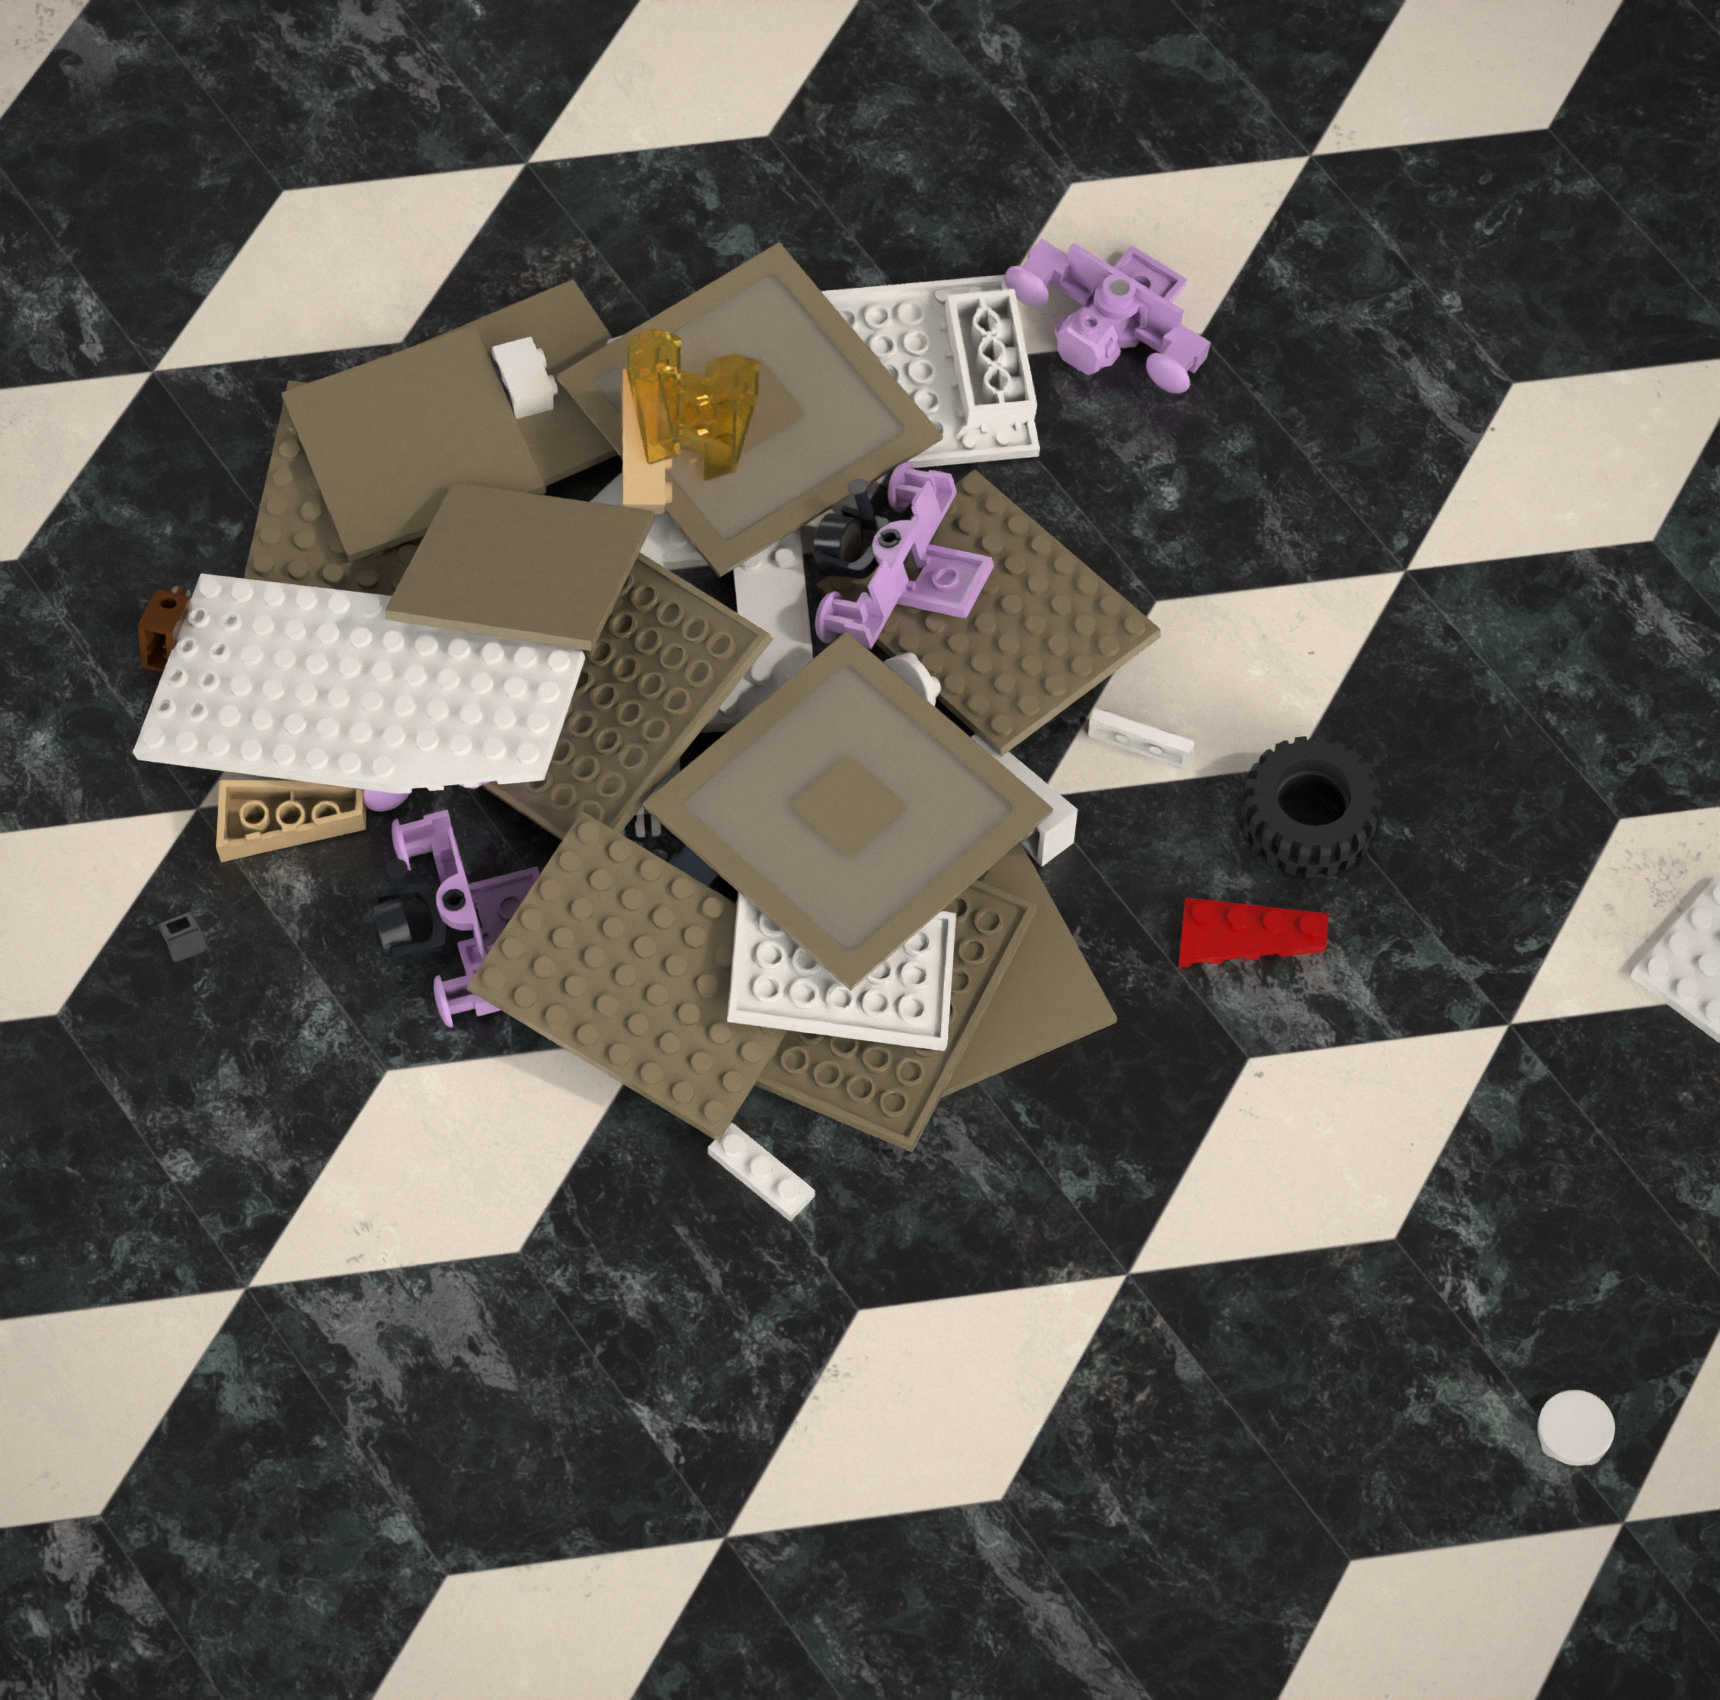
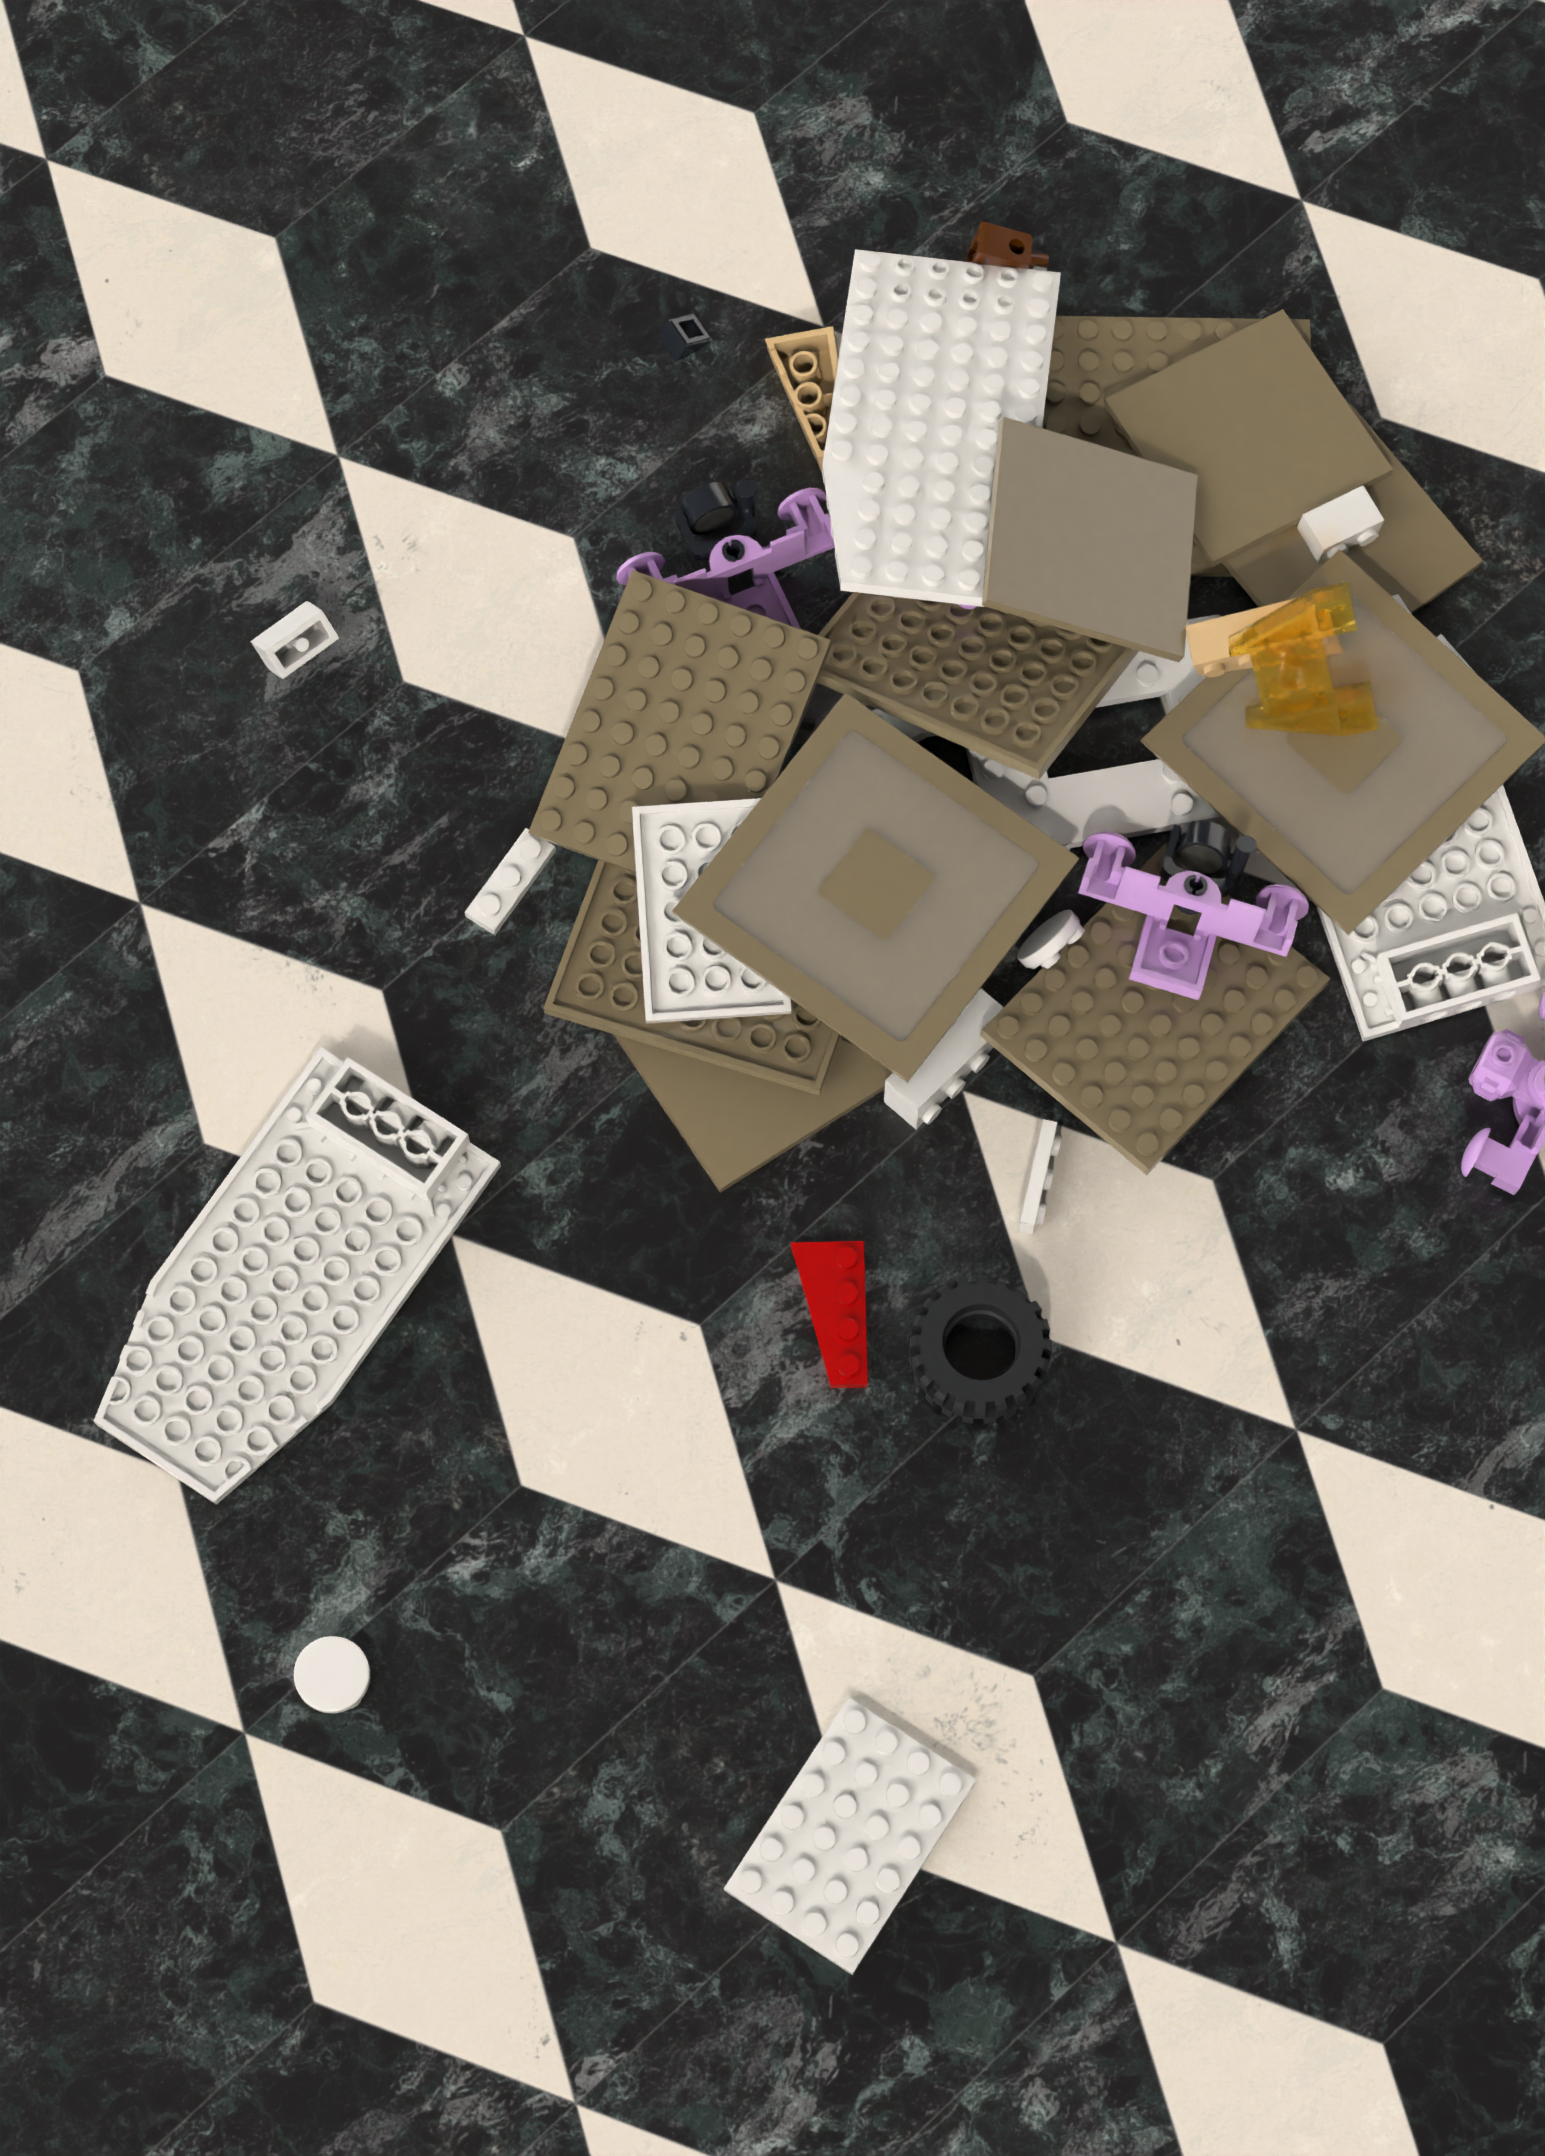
camera: 85 degrees right, 10 degrees up
(462, 1340) = (295, 639): none -> white brick
(1157, 1425) = (290, 1275): none -> white wing

